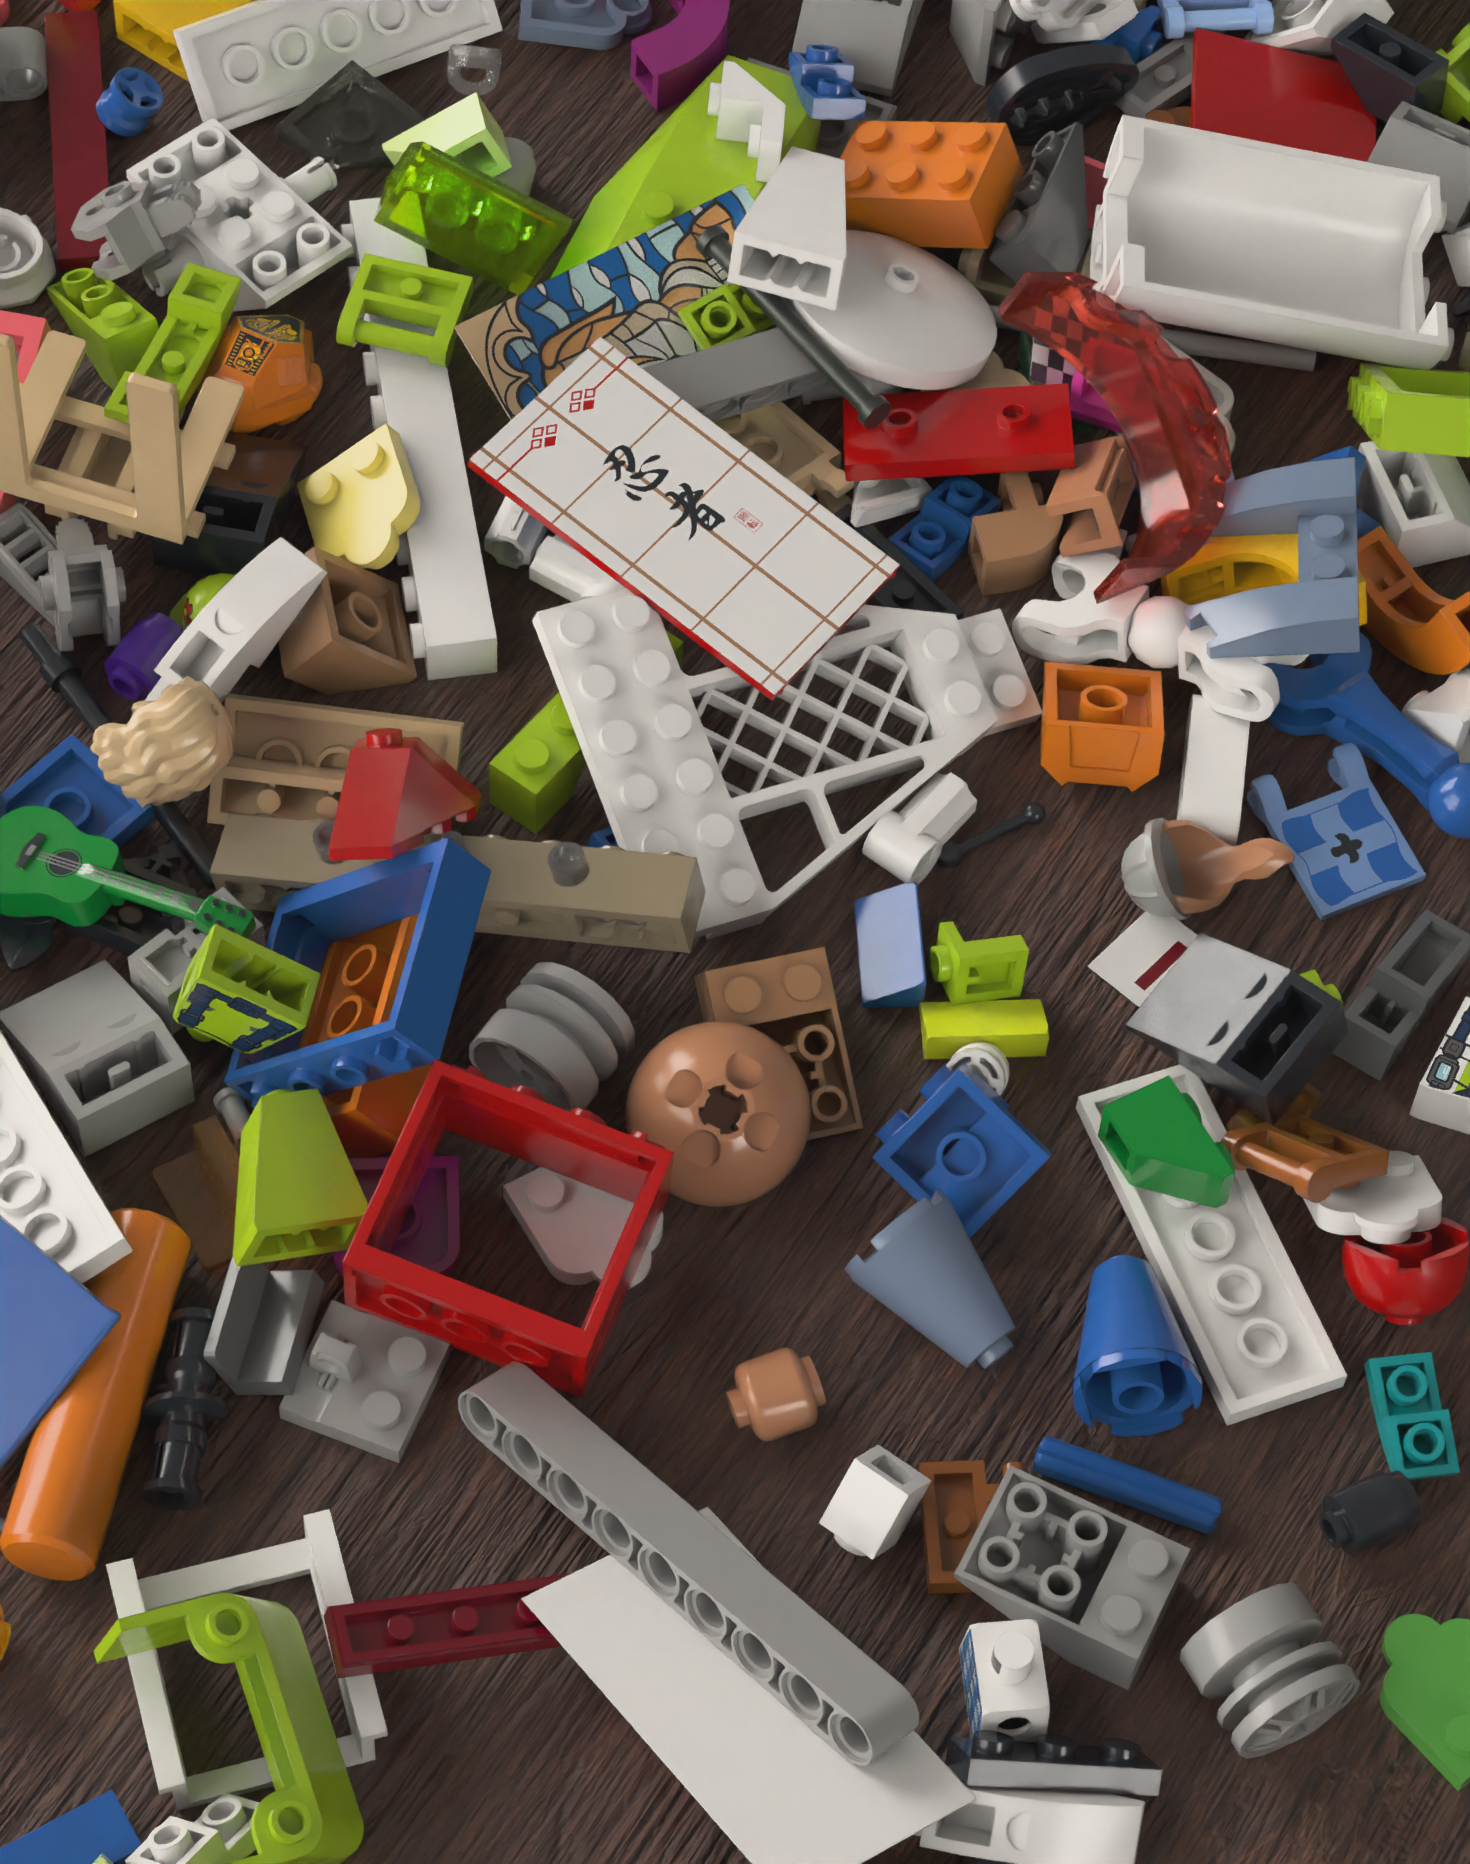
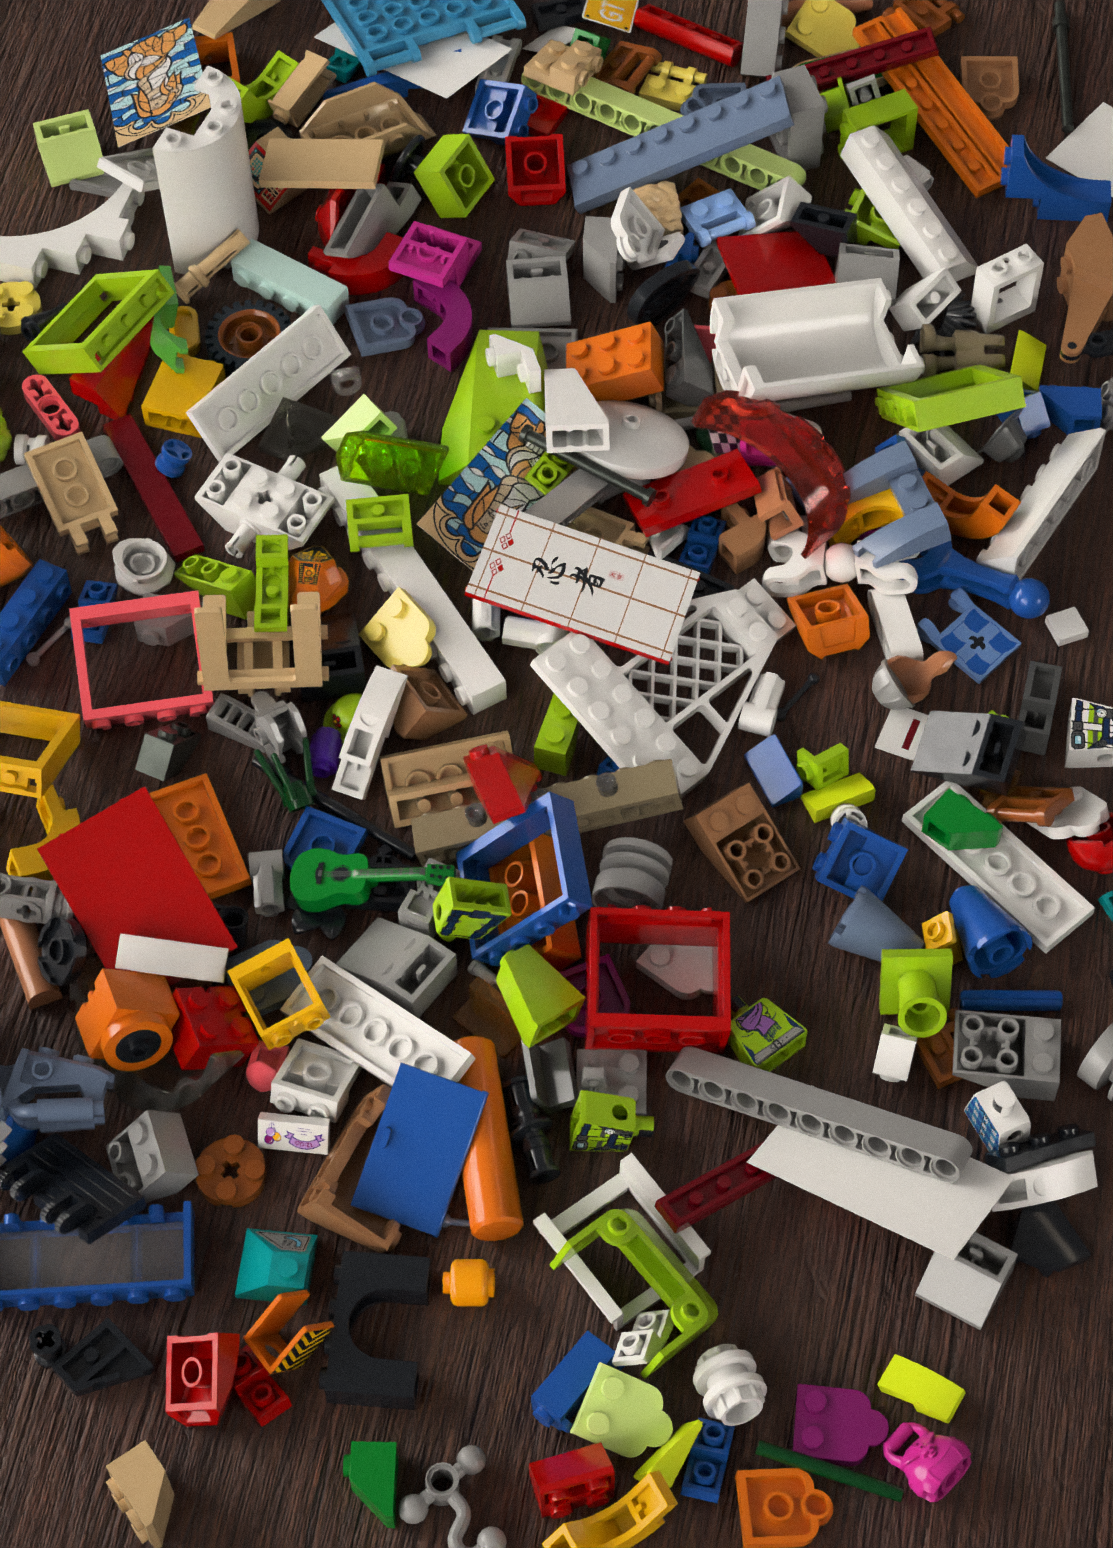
camera: 15 degrees left, 0 degrees up
(61, 706) = (295, 794): none -> dark green plant
(135, 223) = (214, 523): light grey hinge -> none
(167, 745) = (368, 793): tan hair -> none
(317, 1443) = (606, 1122): none -> lime torso
(661, 1388) = (764, 1034): none -> torso
(712, 1160) = (707, 882): nougat piece -> none
(776, 1394) = (822, 1016): nougat head -> none
(826, 83) = (539, 329): blue slope -> none
(958, 1404) = (916, 988): none -> lime plant
(1048, 1334) = (941, 934): none -> yellow bracket

